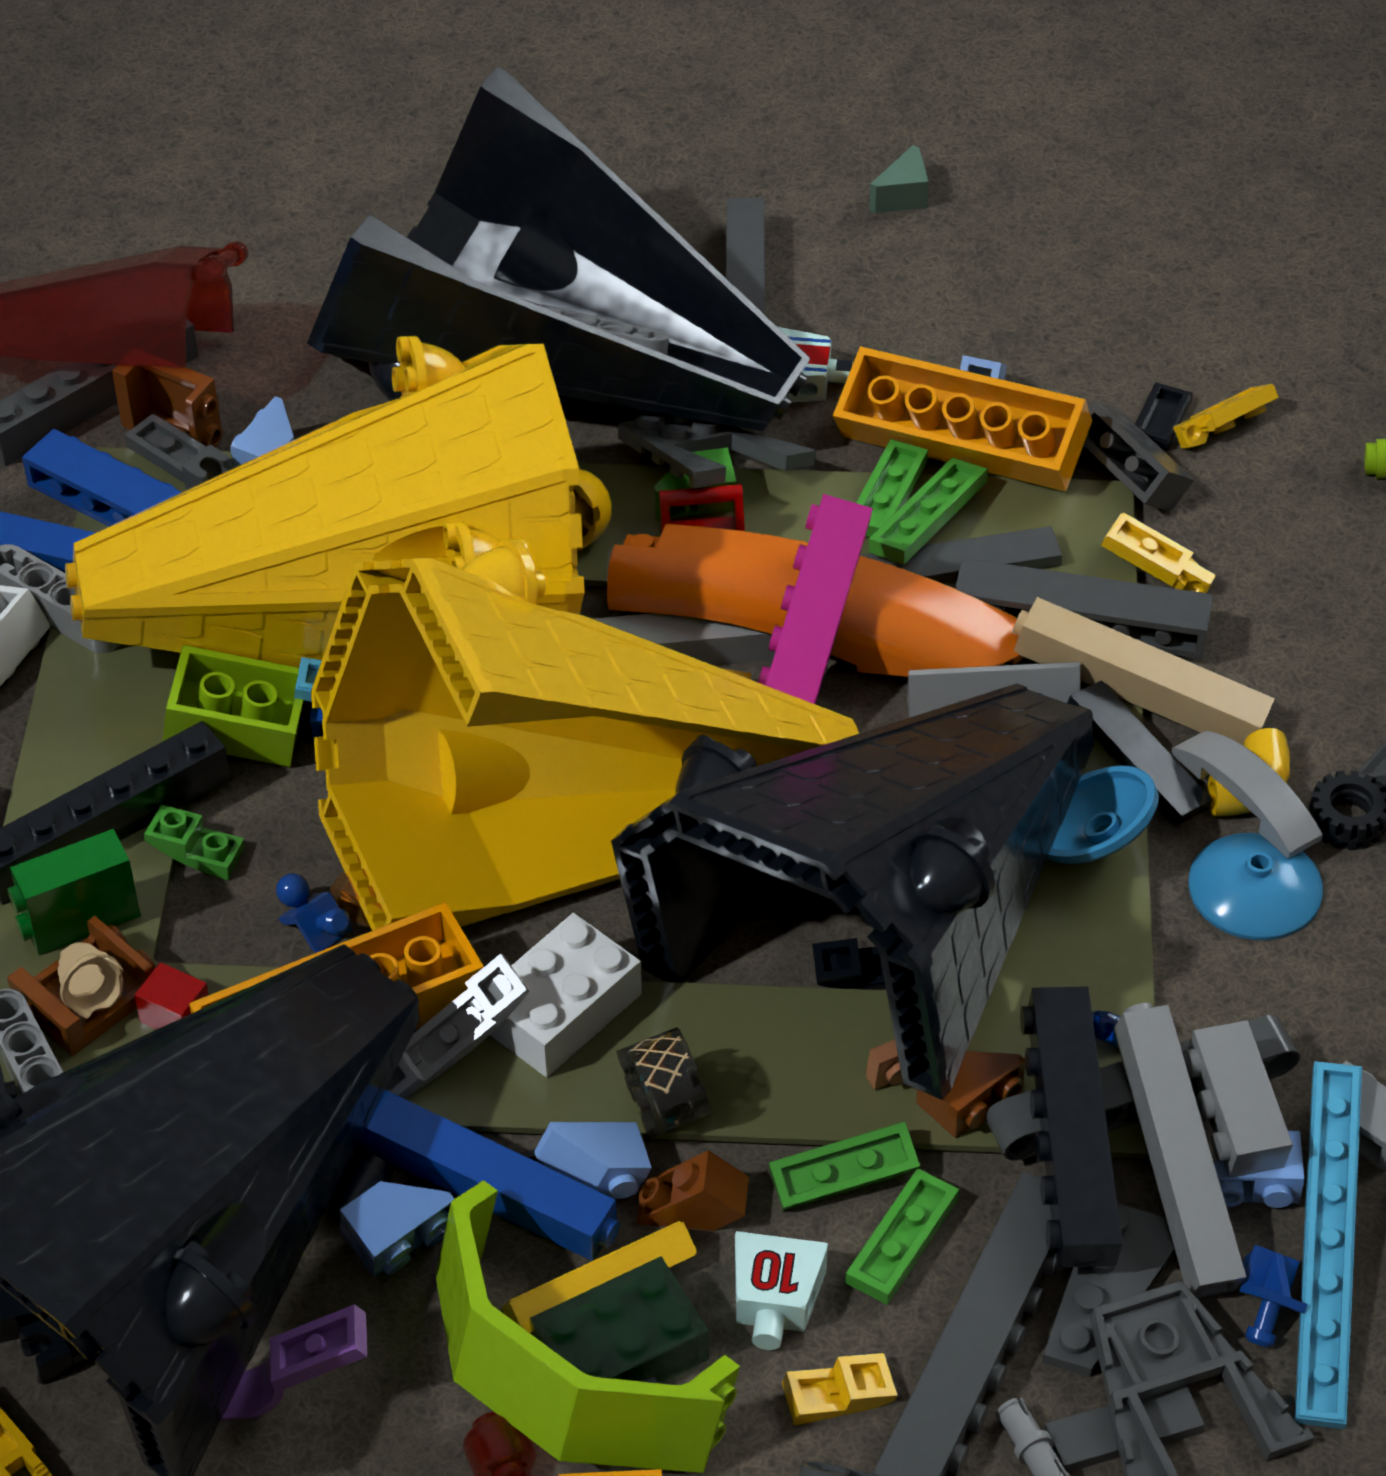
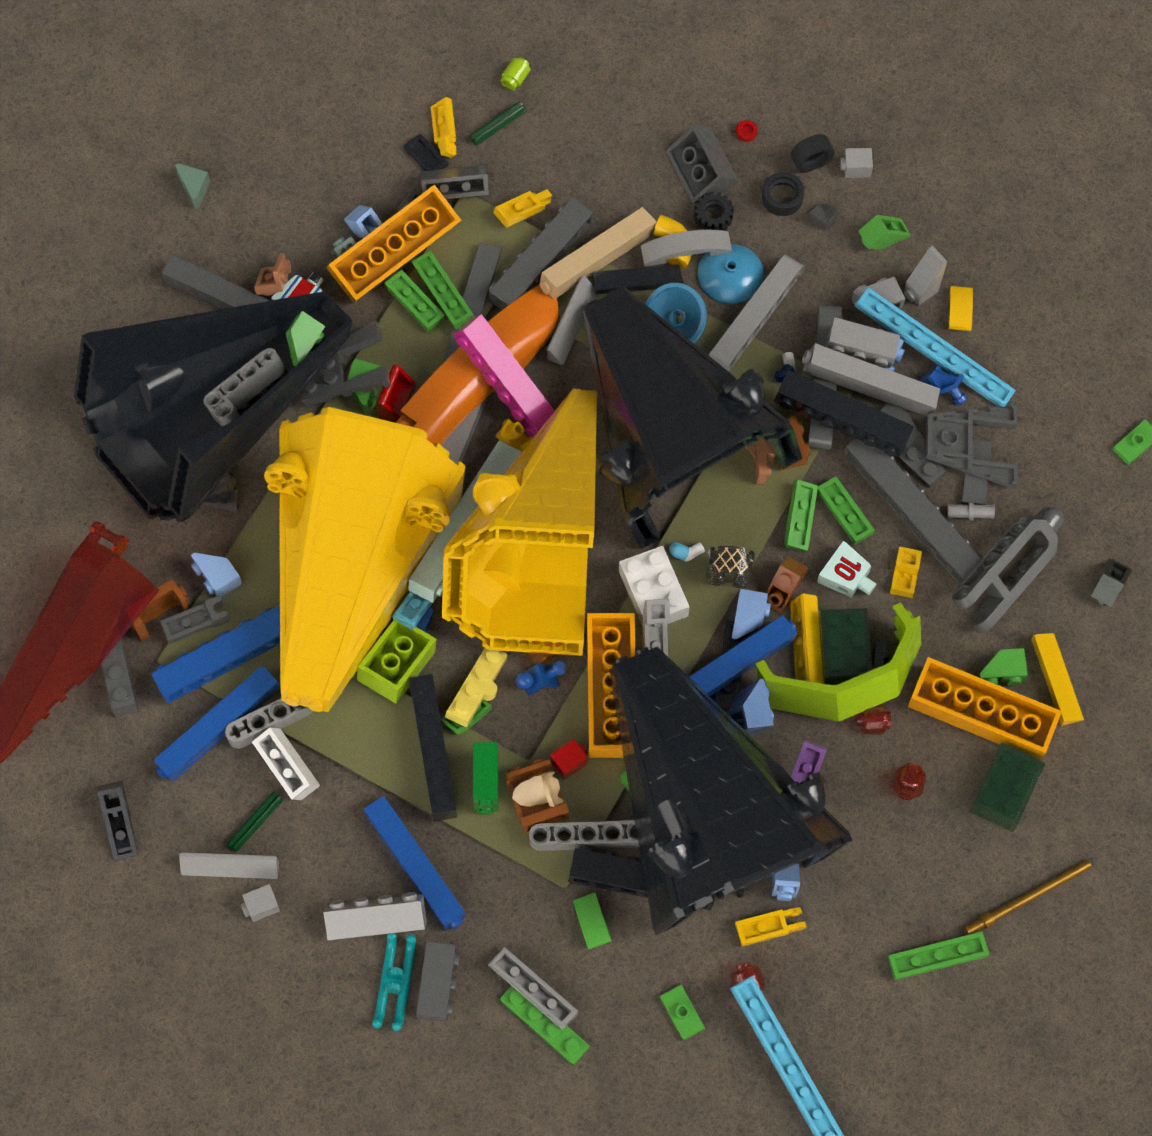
camera: 65 degrees left, 20 degrees up
(89, 1423) = (786, 883): none -> light blue slope
(244, 829) = (477, 687): none -> light yellow hinge
(660, 1015) = (686, 553): none -> arm
(717, 350) = (302, 336): none -> bright green slope
(810, 313) = (273, 278): none -> nougat bracket
(1191, 937) = (756, 312): none -> light grey beam
(1288, 476) = (497, 123): none -> dark green axle

